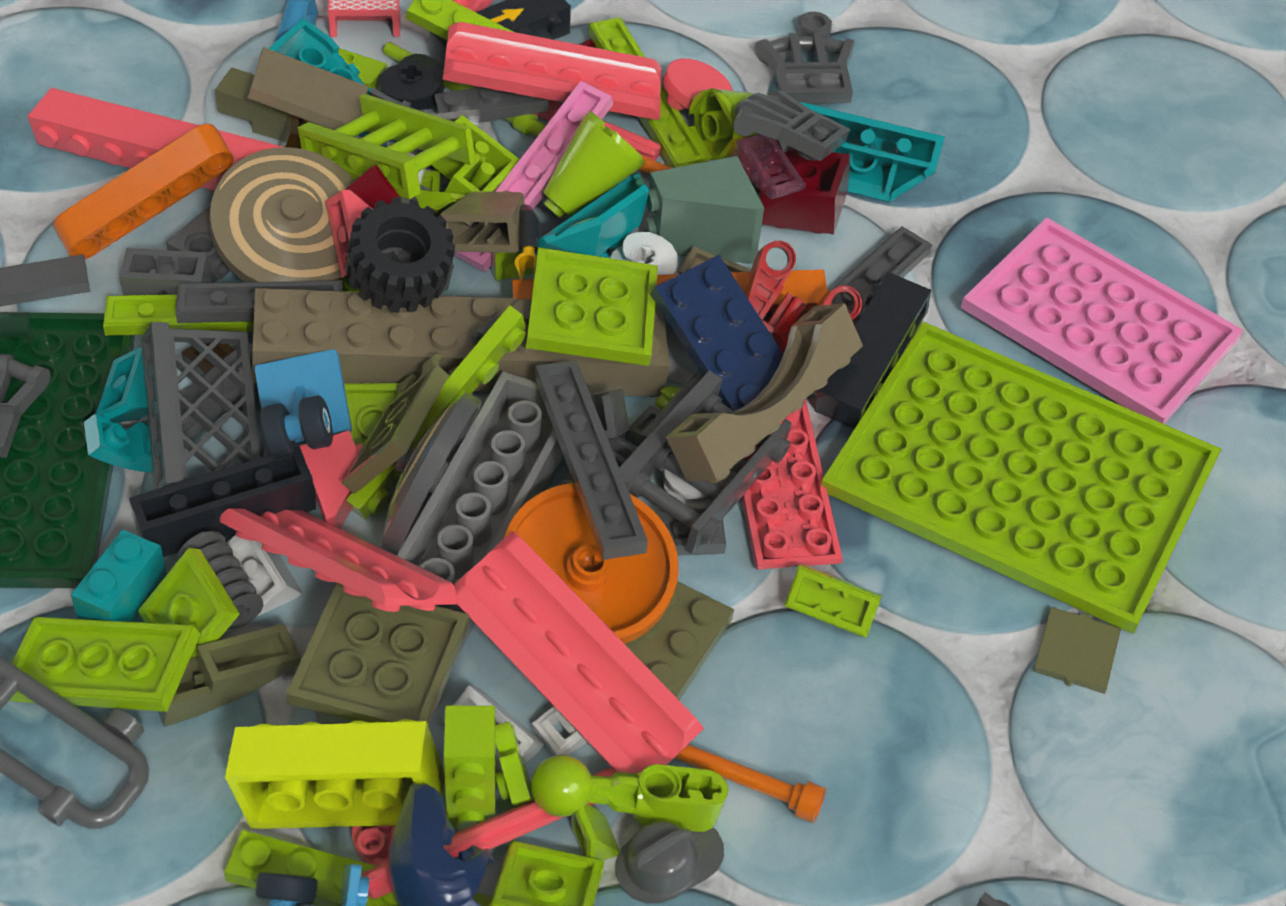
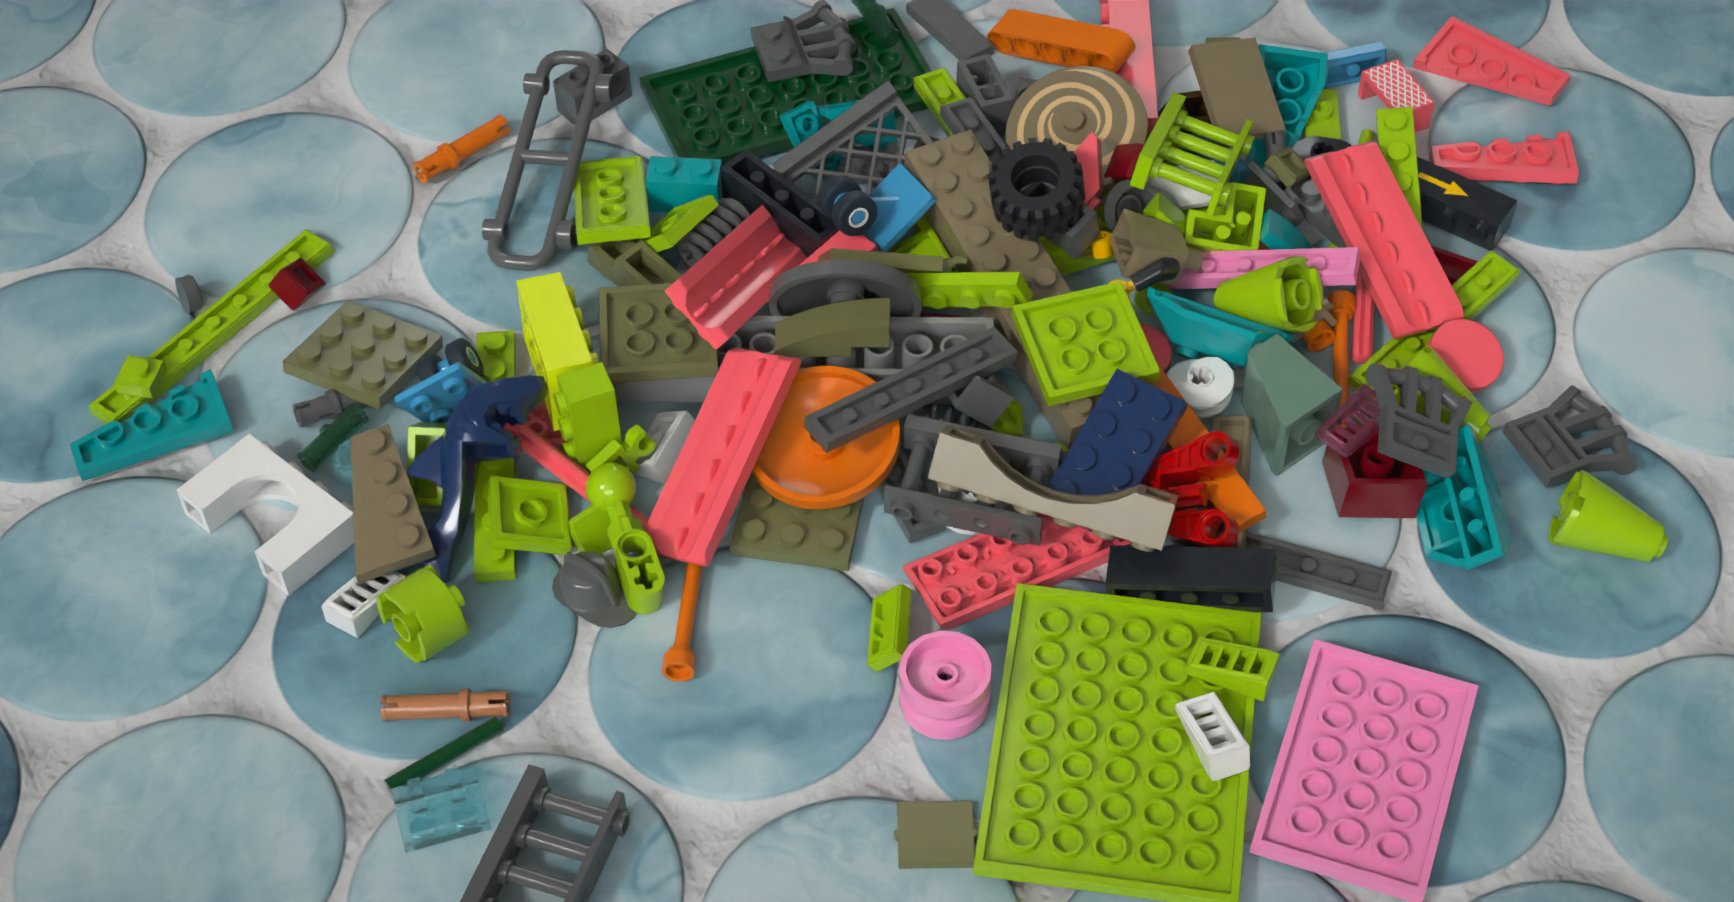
camera: 75 degrees right, 0 degrees up
(422, 99) = (1288, 167): none -> olive tile
(466, 496) = (834, 329): none -> olive slope
(512, 139) = (1280, 233): none -> teal slope
(814, 23) = (1644, 430): dark grey tile -> none
(907, 82) = (1604, 522): none -> lime cone
(930, 573) = (945, 685): none -> bright pink wheel
(997, 335) = (1242, 681): none -> lime slope
(1066, 385) = (1223, 758): none -> white slope

